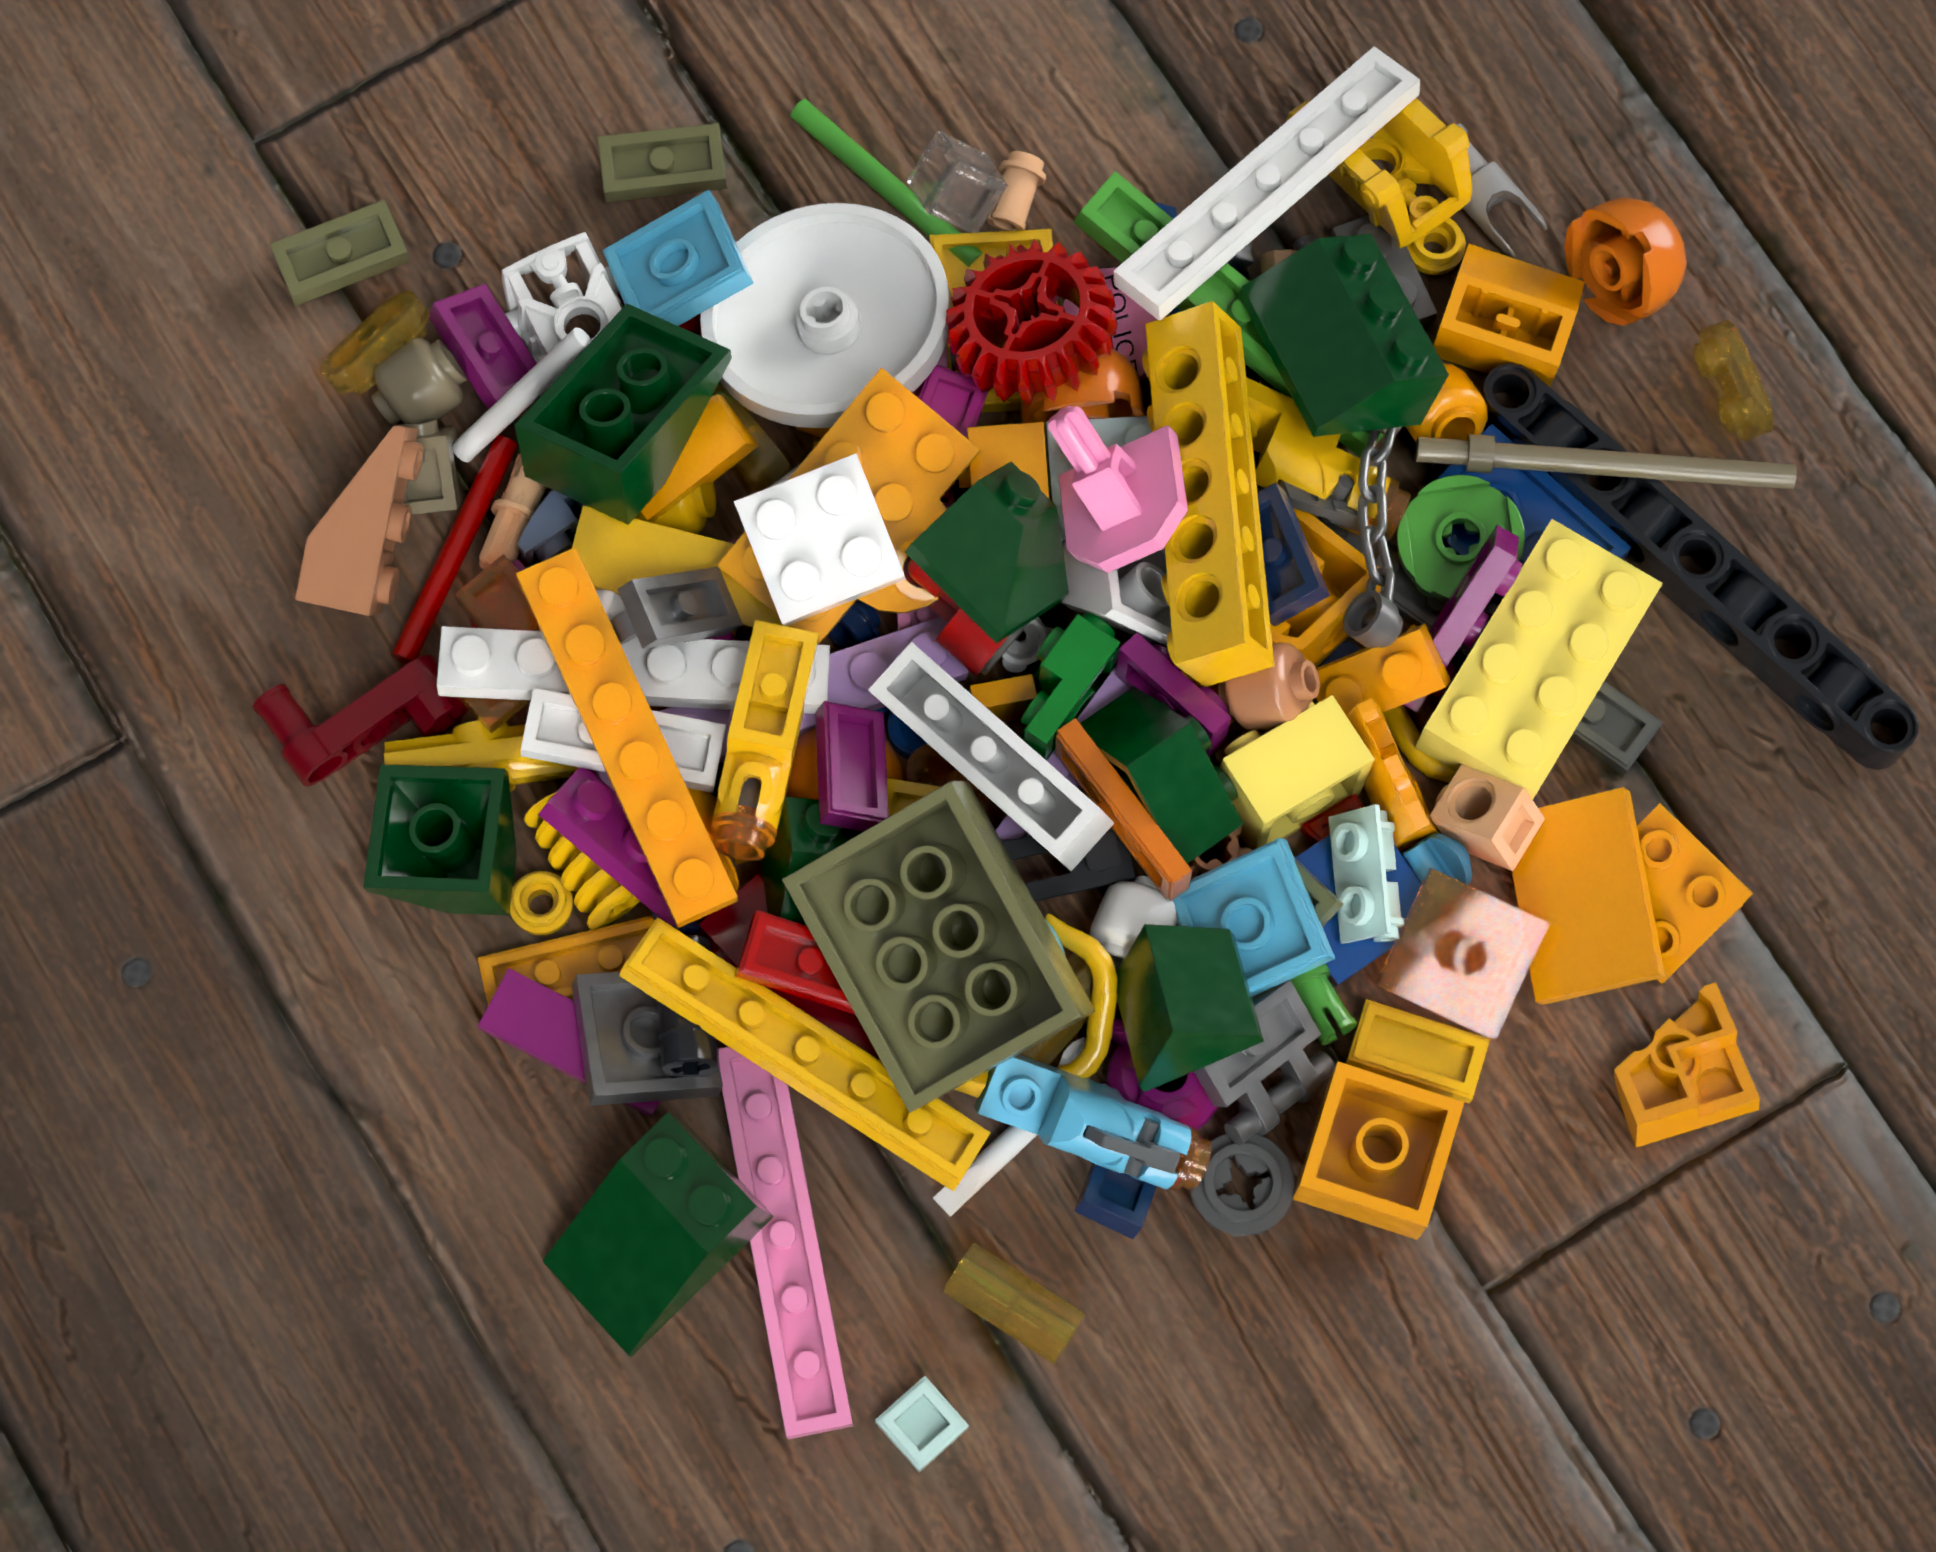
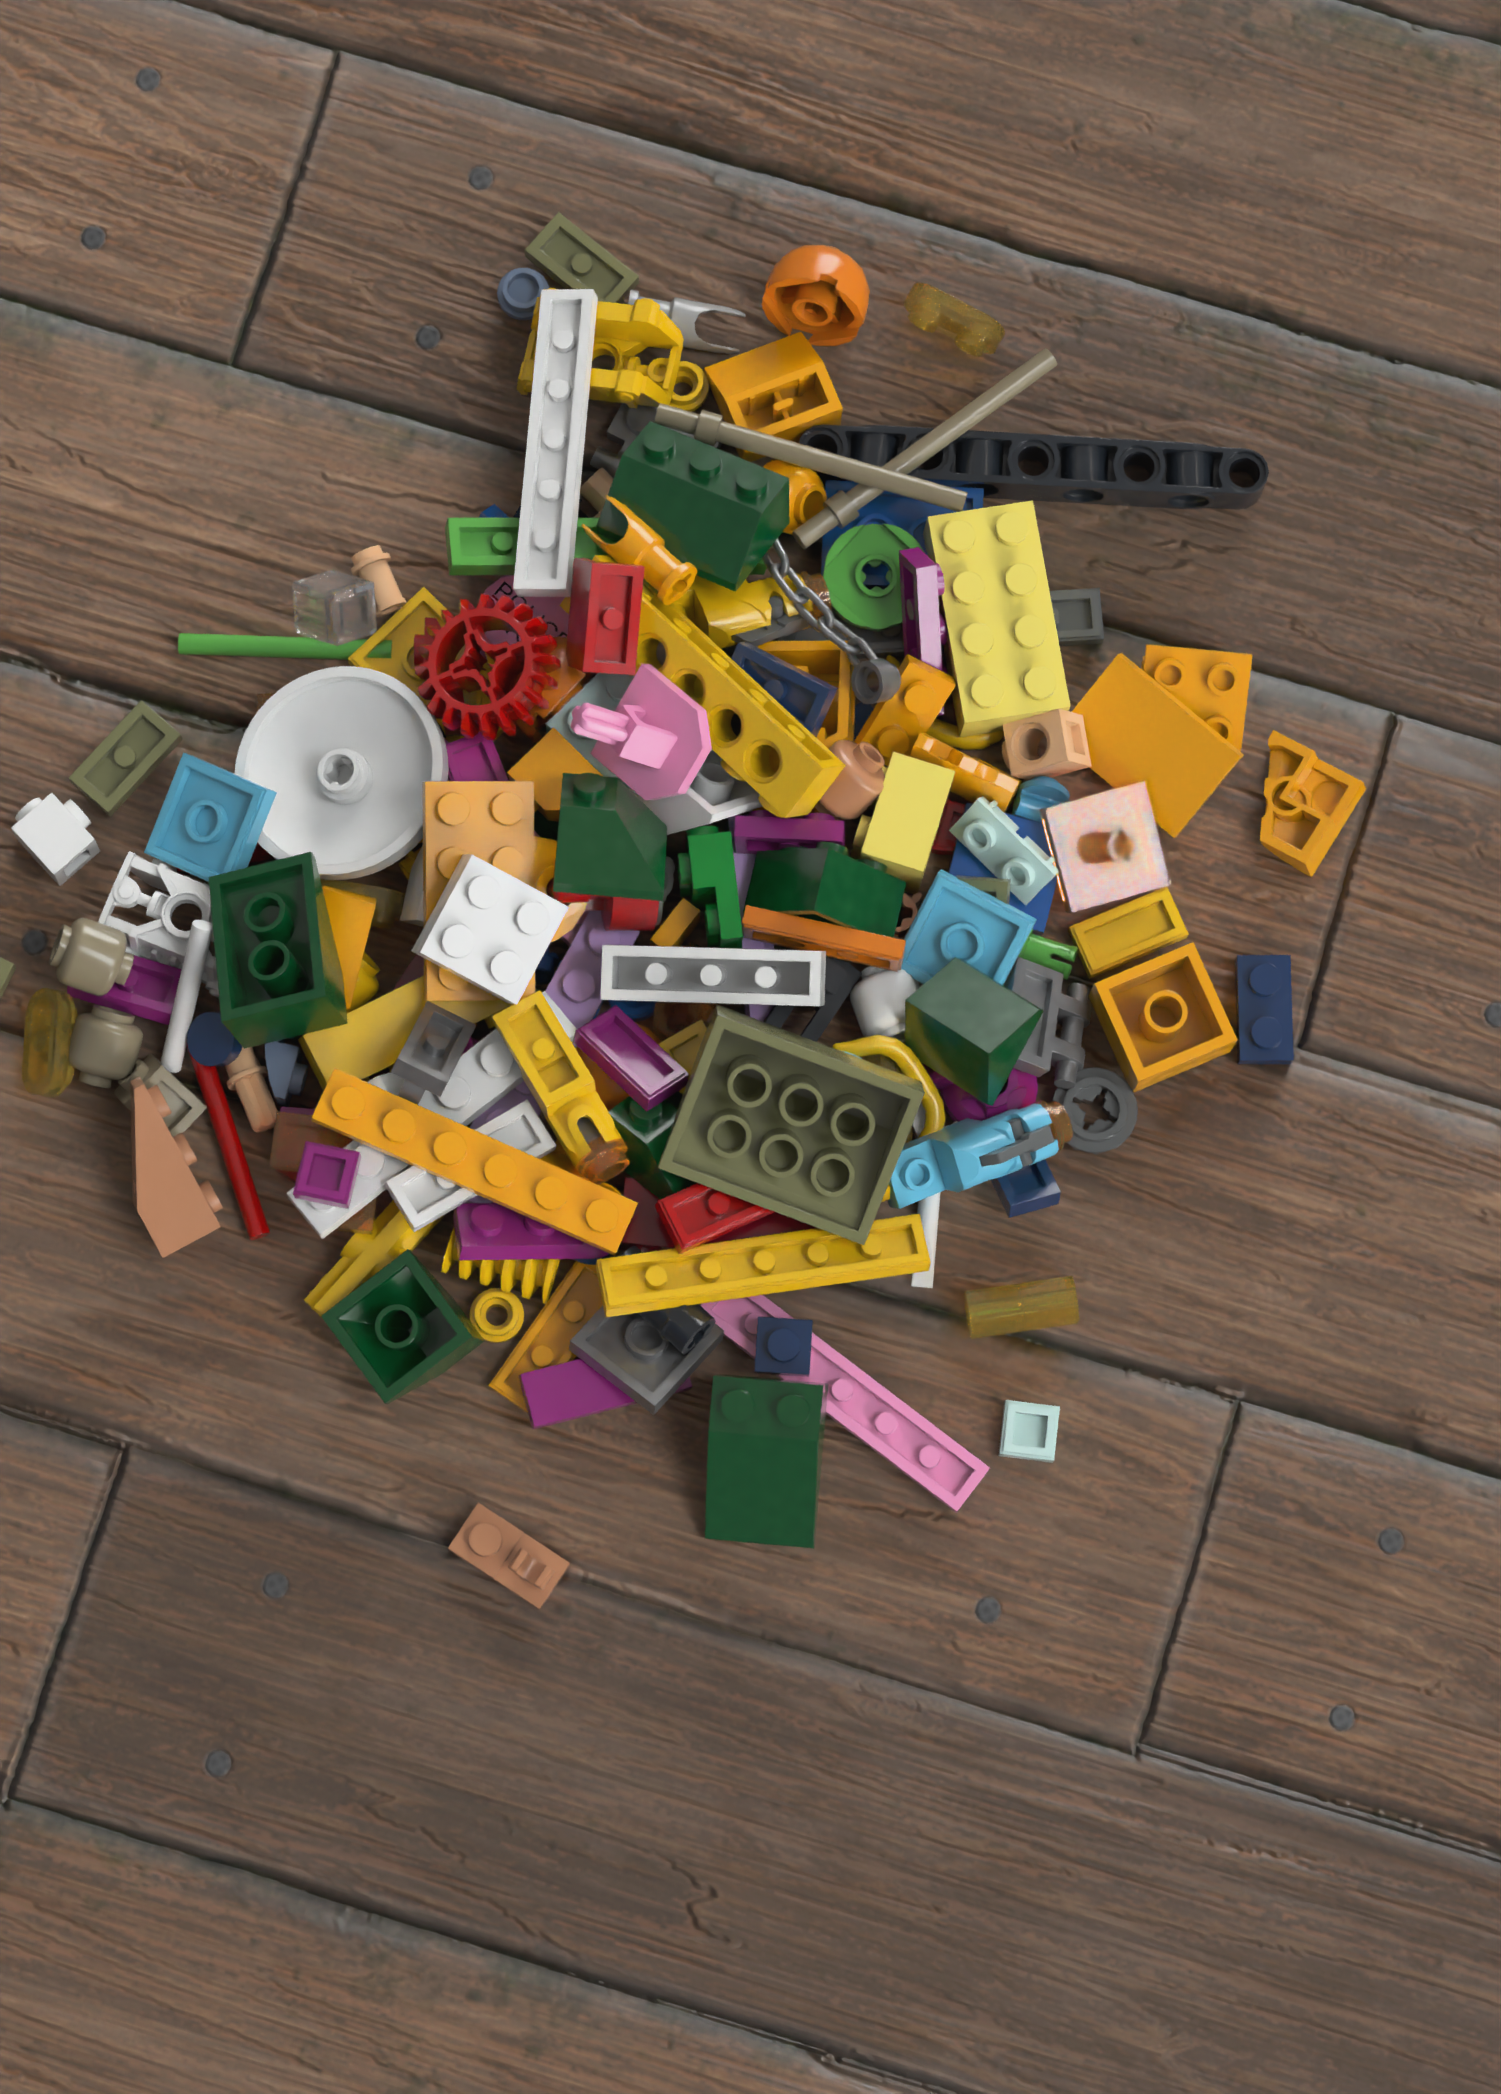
camera: 45 degrees left, 5 degrees up
(323, 749) = (260, 1347): dark red beam -> none
(356, 1124) = (508, 1556): none -> nougat plate
(470, 292) = (91, 956): none -> dark tan head
(487, 637) = (327, 1175): none -> magenta tile
(503, 458) = (211, 1041): none -> dark blue tile
(541, 178) = (55, 836): none -> white brick
(762, 1147) = (783, 1346): none -> dark blue plate
(1173, 359) = (604, 616): none -> red panel
(1259, 337) = (646, 548): none -> light orange piece
(1357, 43) = (519, 292): none -> sand blue plate
(1422, 288) = (711, 429): none -> dark tan bar
(1435, 53) = (579, 261): none -> olive plate
(1483, 1228) = (1264, 1009): none -> dark blue plate

